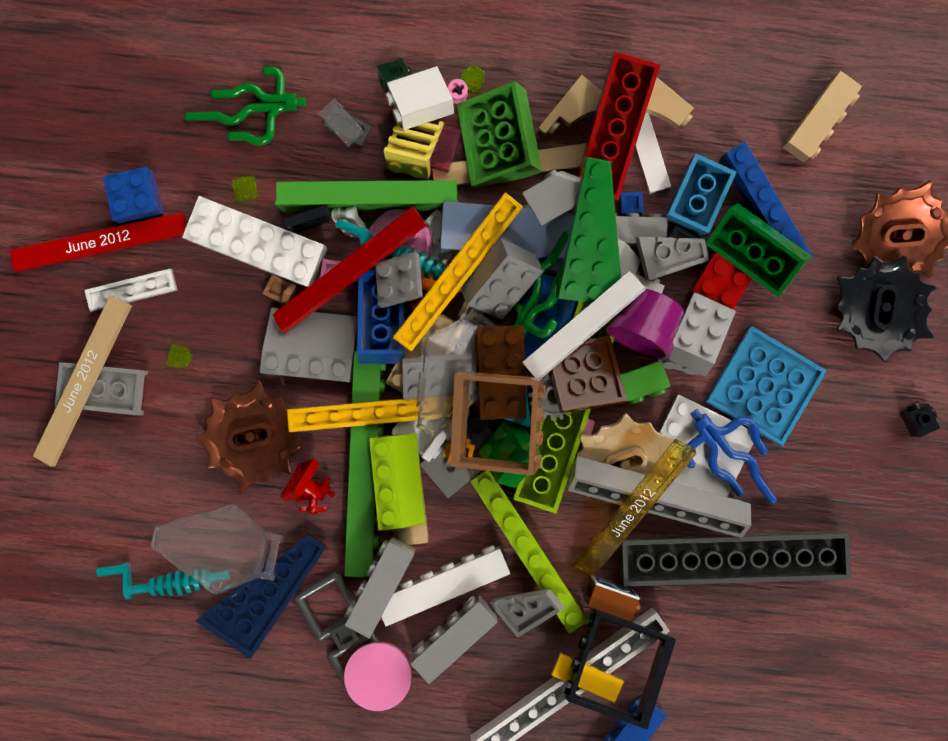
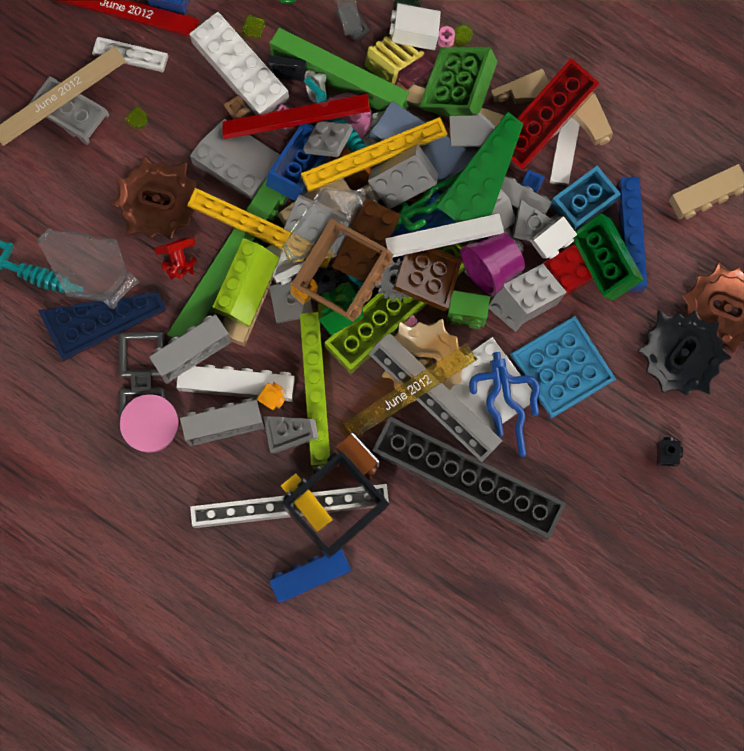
camera: 30 degrees right, 10 degrees down
(491, 587) = (272, 396): none -> light orange brick
(692, 258) = (553, 237): none -> white brick

